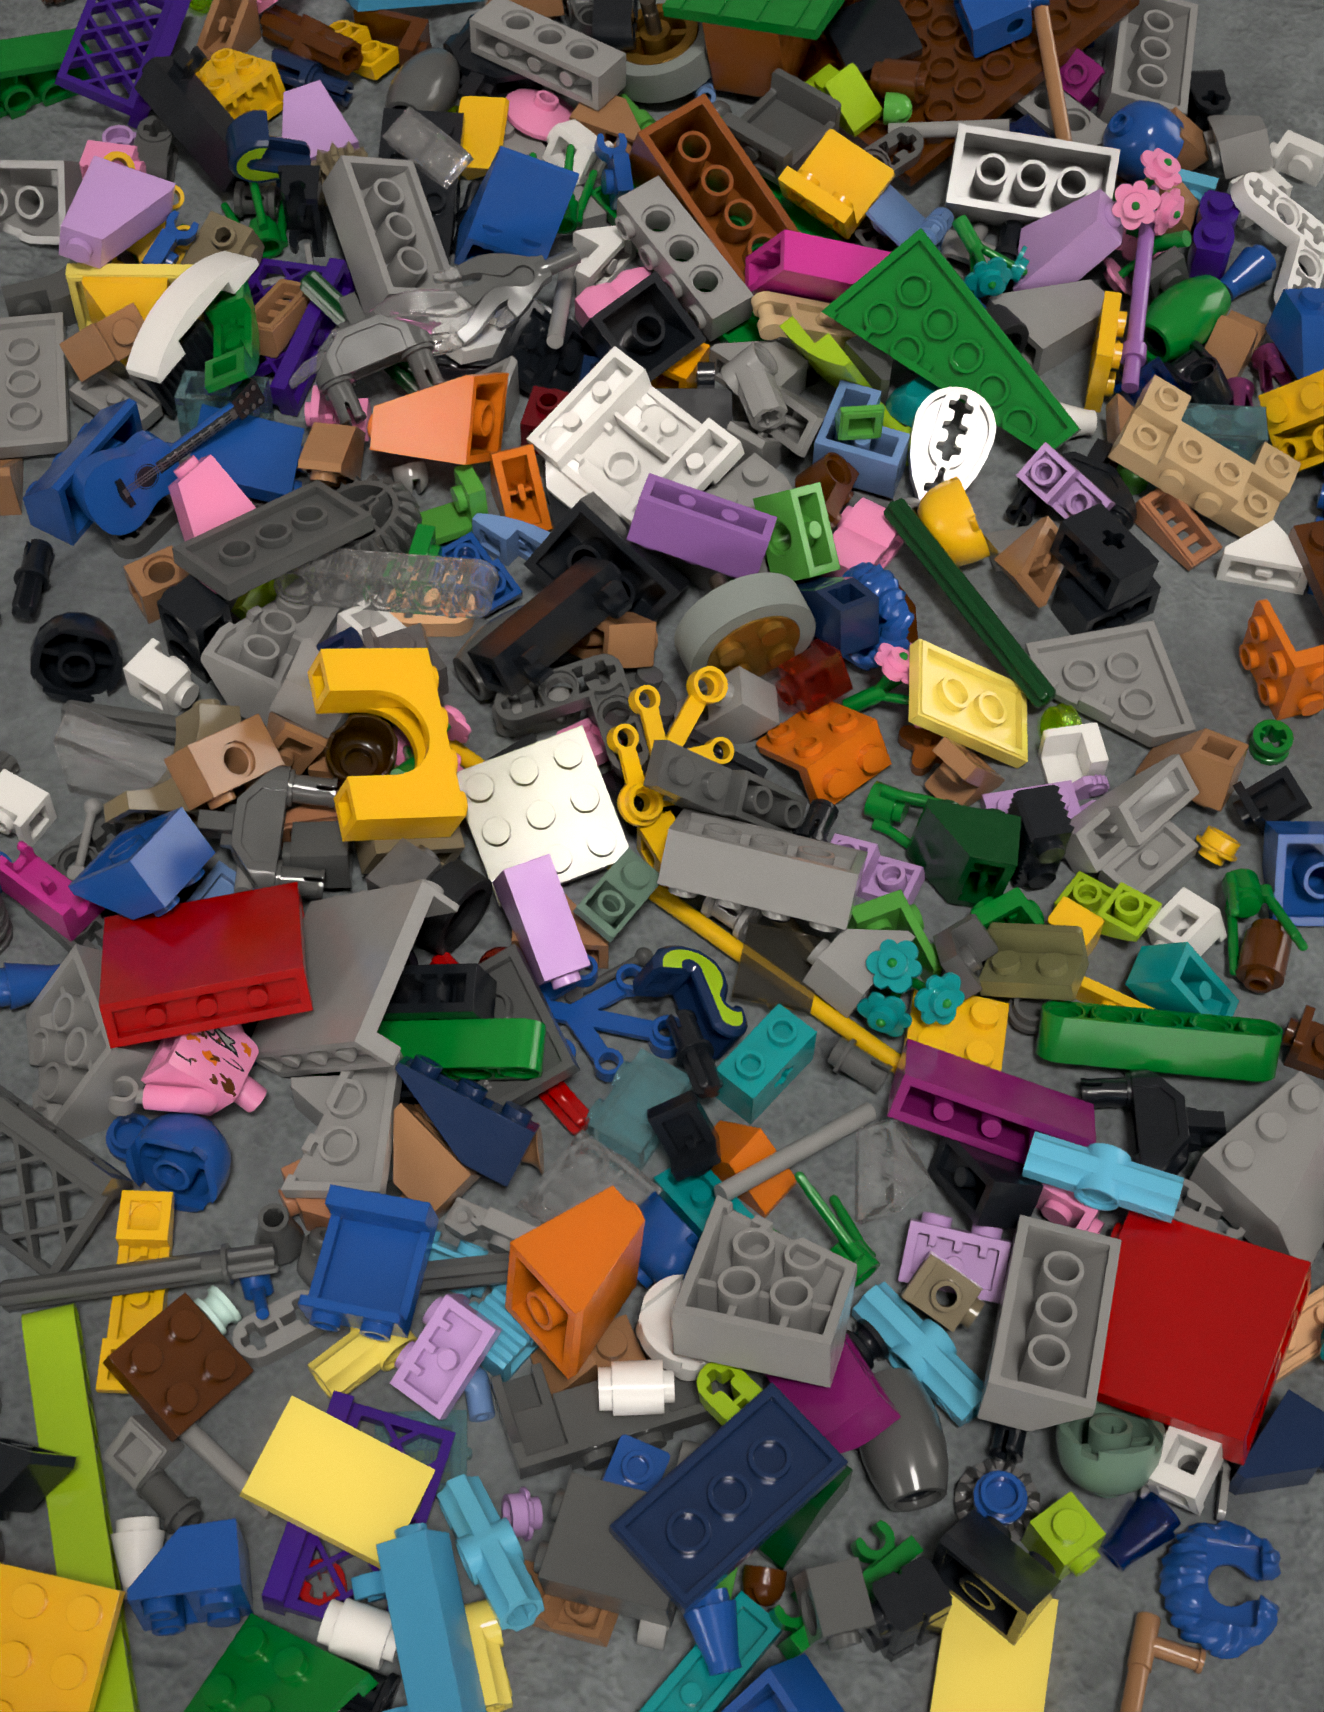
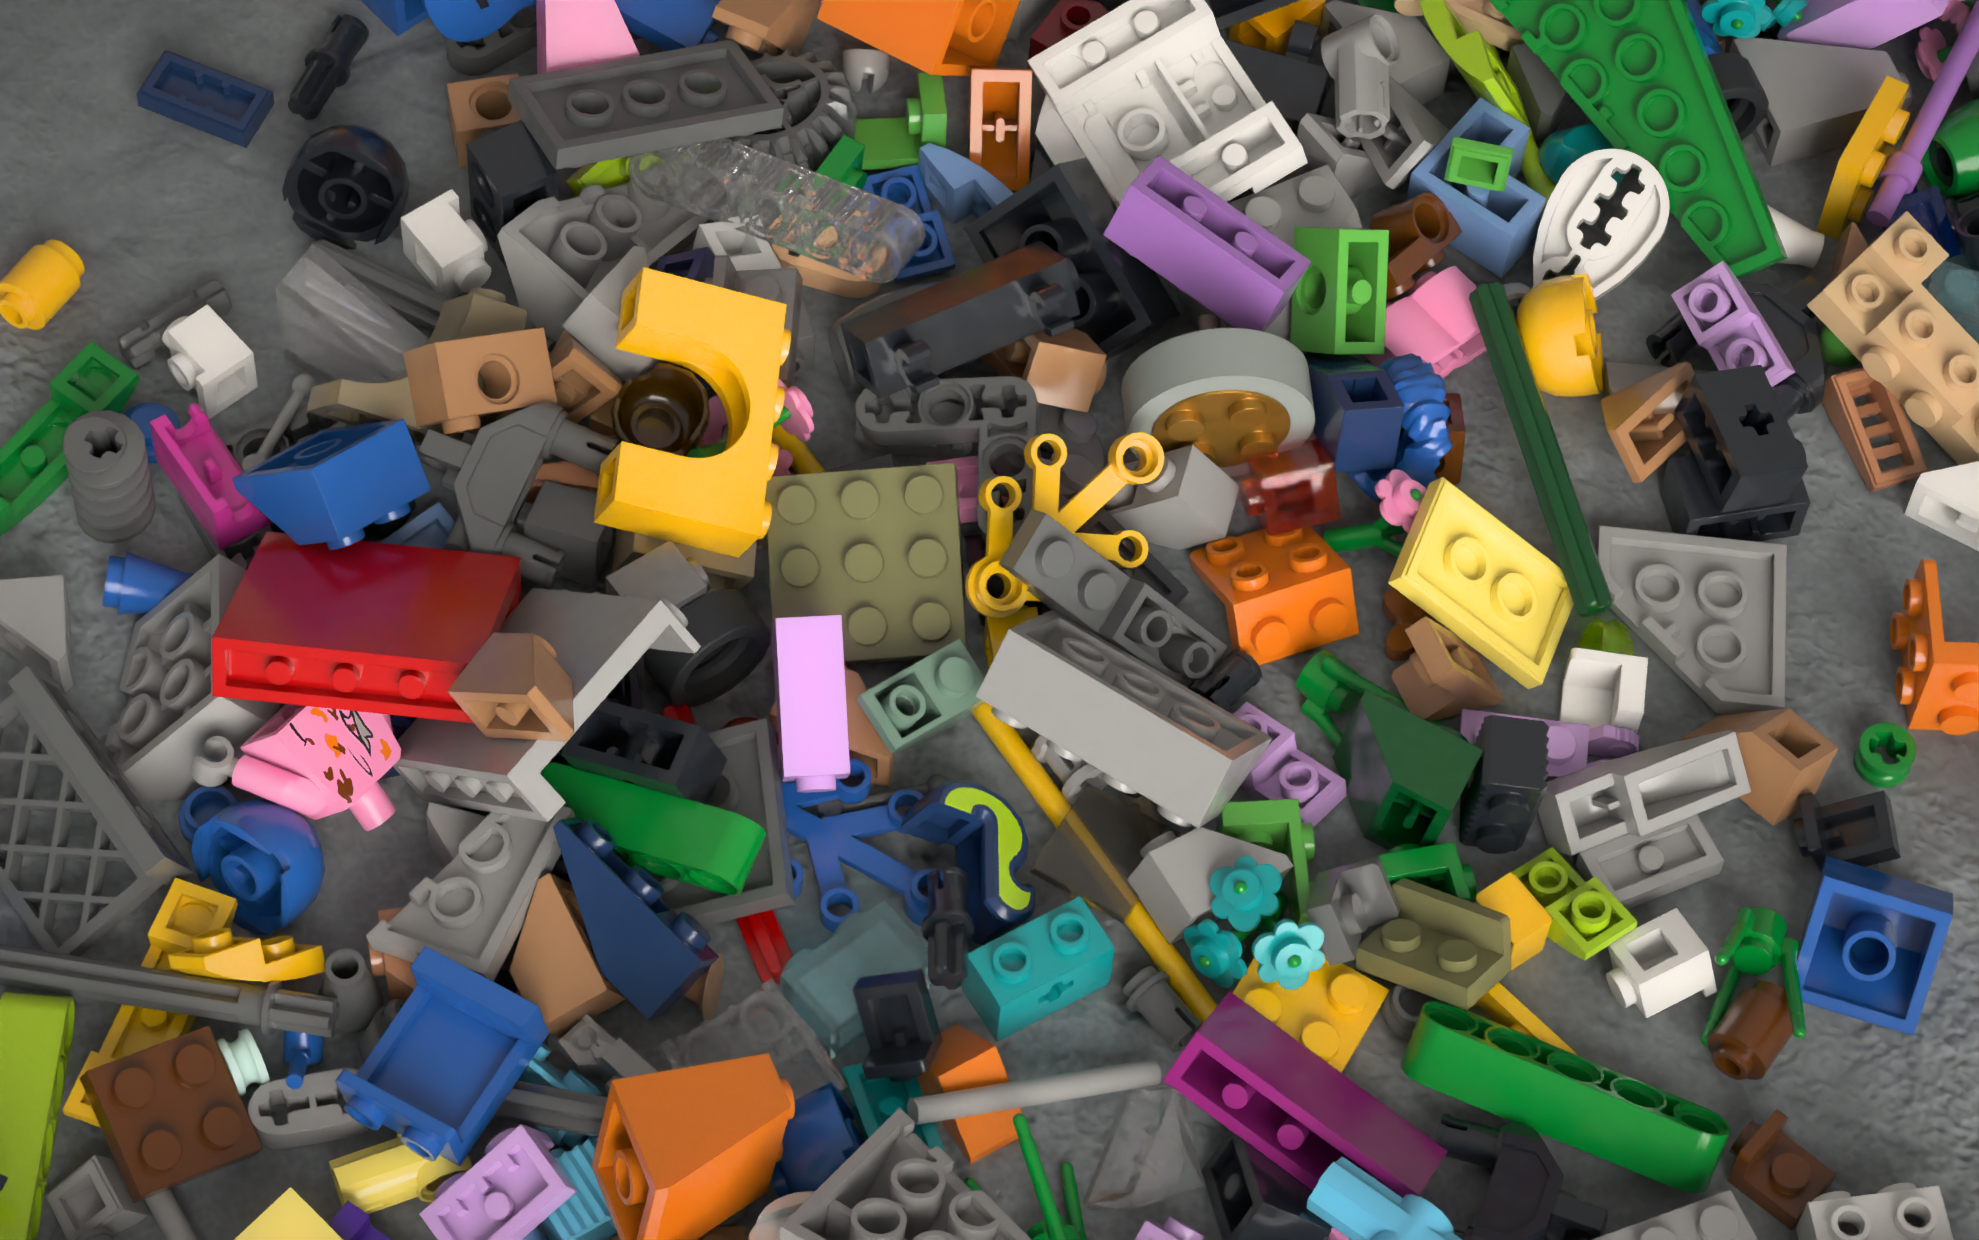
camera: 15 degrees right, 0 degrees up
(197, 1234) = (249, 959): none -> yellow slope
(340, 977) = (517, 690): none -> medium nougat slope
(1179, 980) = (1623, 1028): teal slope -> none
(1217, 846) = (1751, 870): yellow plate -> none

